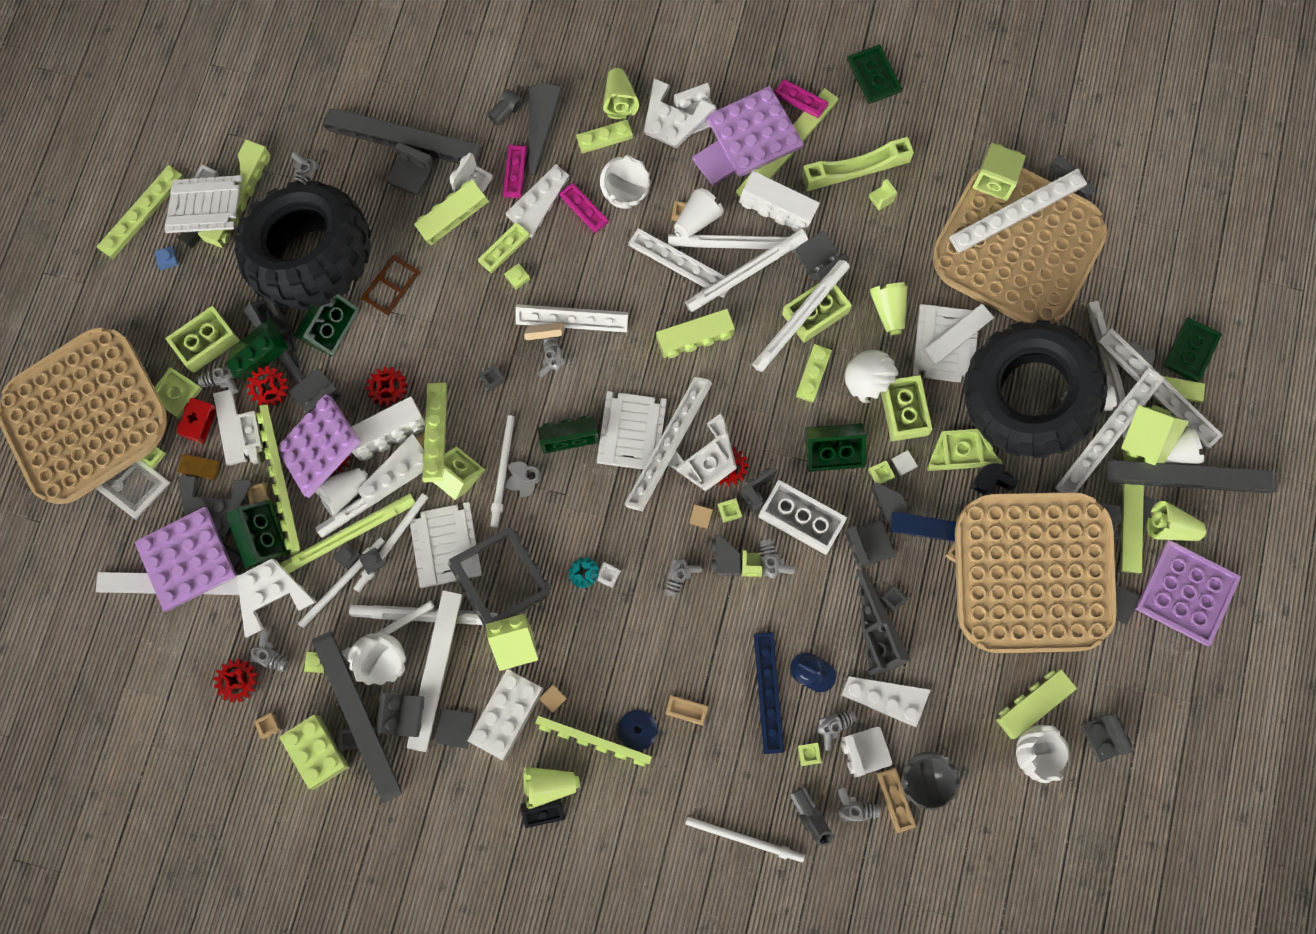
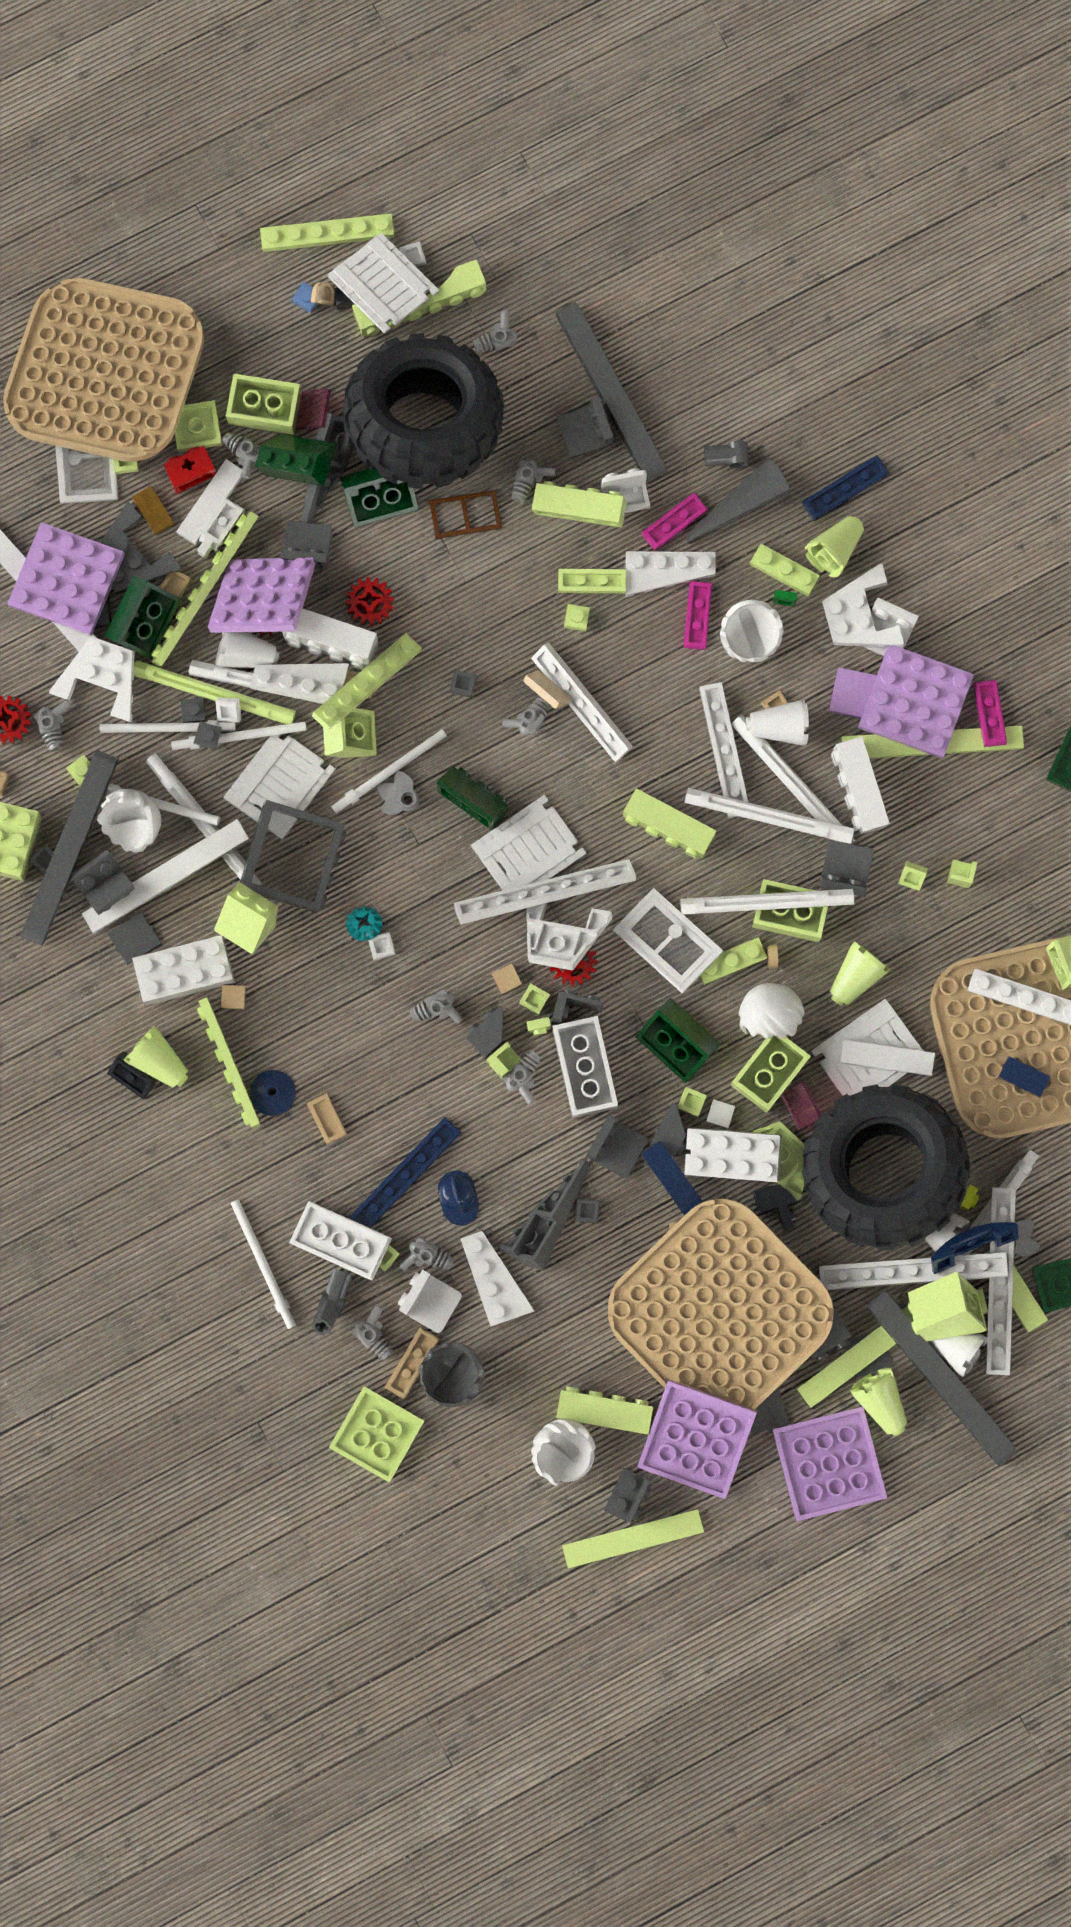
camera: 45 degrees right, 5 degrees up
(174, 245) = (323, 294): none -> tan tile
(236, 314) = (313, 409): none -> clear pink piece
(263, 395) = (271, 492): red gear -> none
(368, 533) = (228, 709): none -> white tile
(404, 229) = (526, 478): none -> light grey piece
(589, 62) = (845, 488): none -> dark blue tile
(622, 148) = (785, 598): none -> green tile
(750, 523) = (538, 1026): none -> yellowish green plate
(767, 398) = (668, 940): none -> white door
(775, 774) = (340, 1240): none -> white tile
(828, 173) = (993, 838): yellowish green arch -> none
(834, 345) = (772, 957): none -> tan tile
(858, 223) = (912, 876): none -> yellowish green plate
(924, 867) = (376, 1434): none -> yellowish green plate
(941, 475) = (733, 1154): none -> white piece
(945, 409) = (801, 1105): none -> clear pink piece
(1042, 266) = (1024, 1077): none -> dark blue tile
(1105, 660) = (697, 1439): none -> lavender plate
(1132, 362) = (999, 1232): none -> dark blue slope
(1133, 763) = (633, 1538): none -> yellowish green tile

